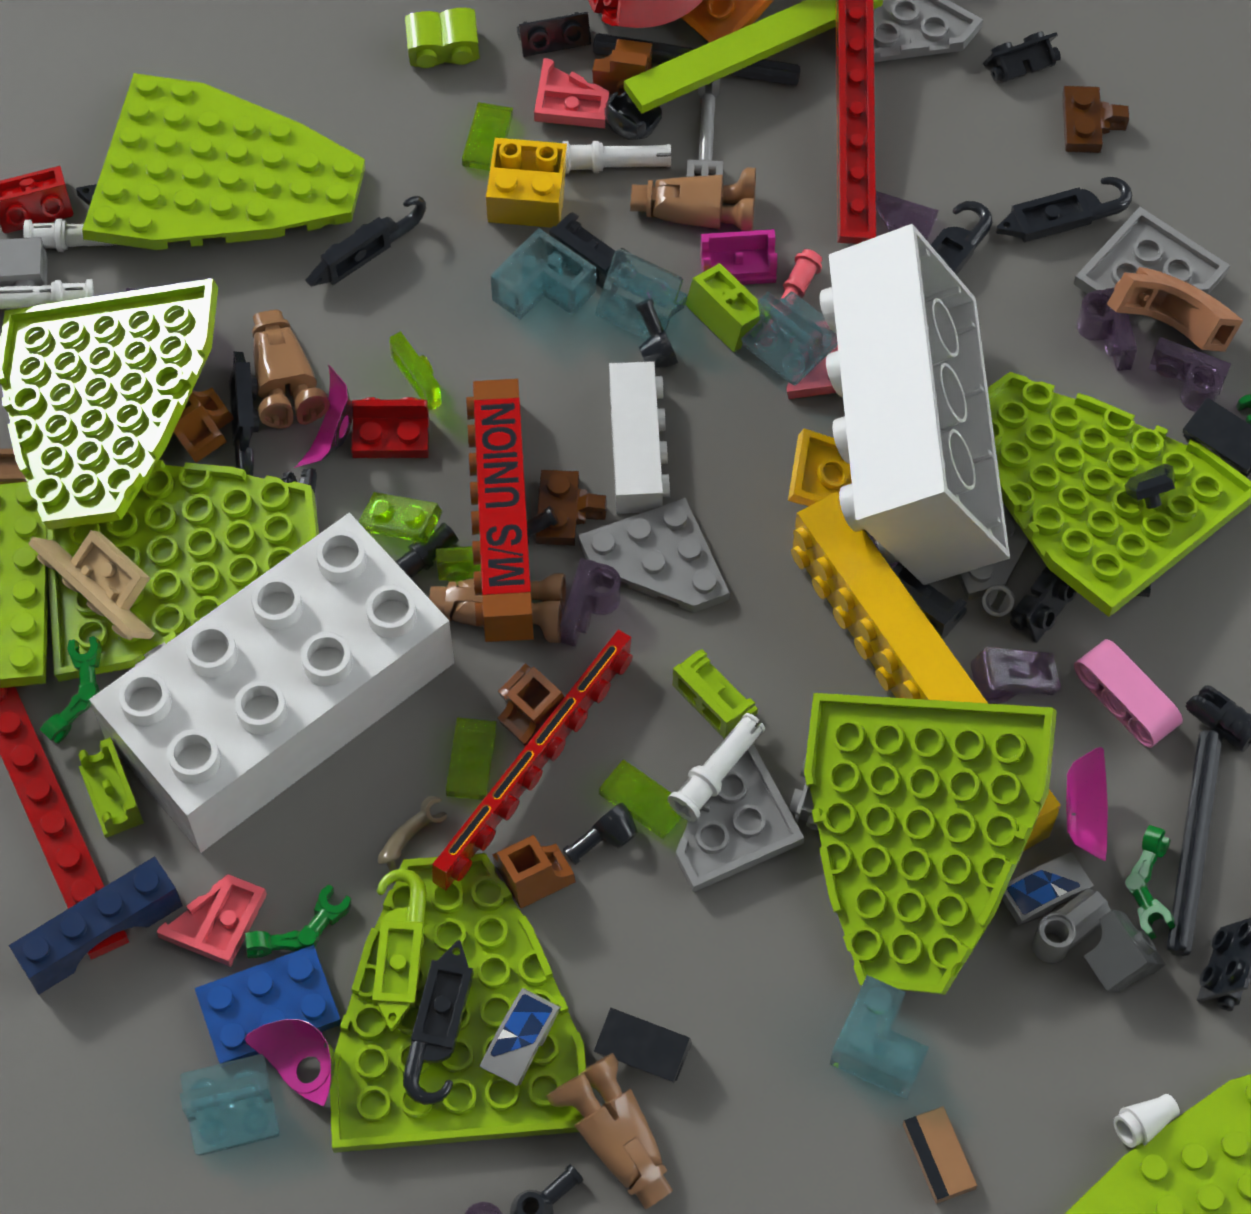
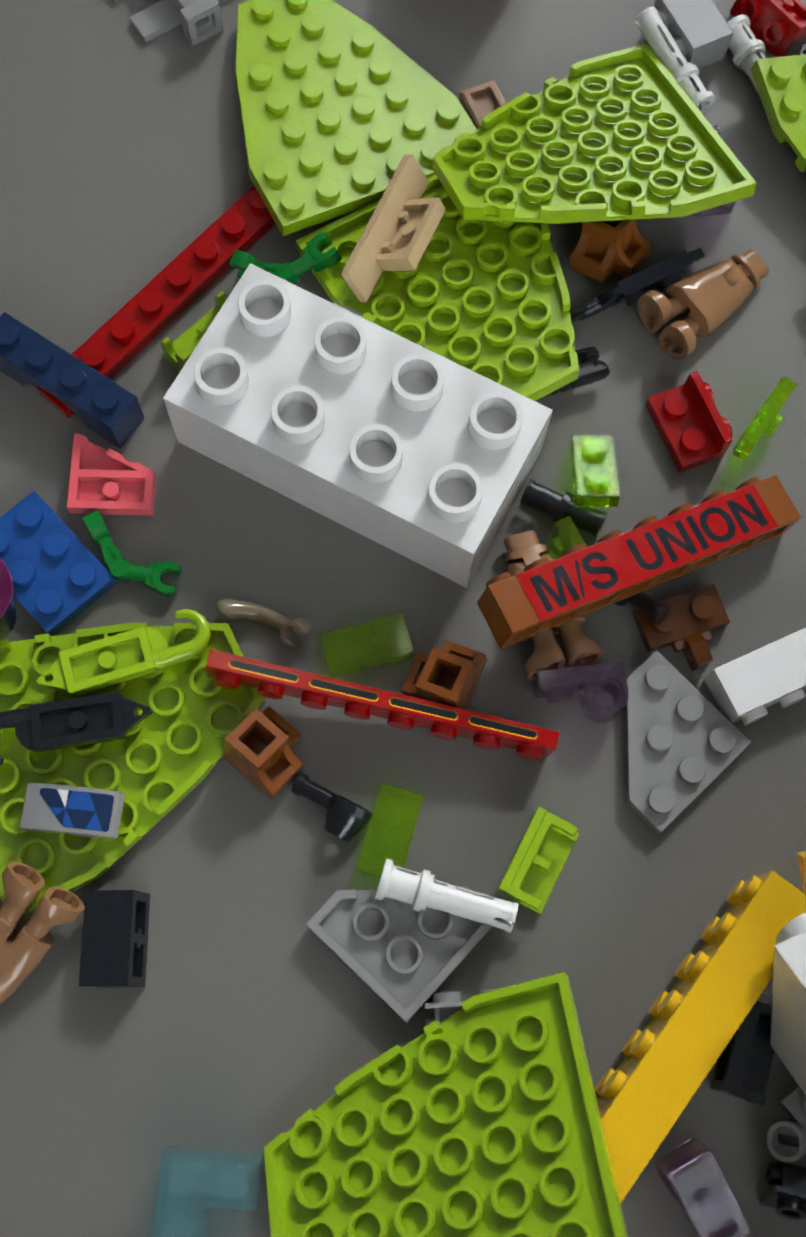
camera: 65 degrees right, 10 degrees up
(335, 422) = (660, 373): dark pink piece -> none

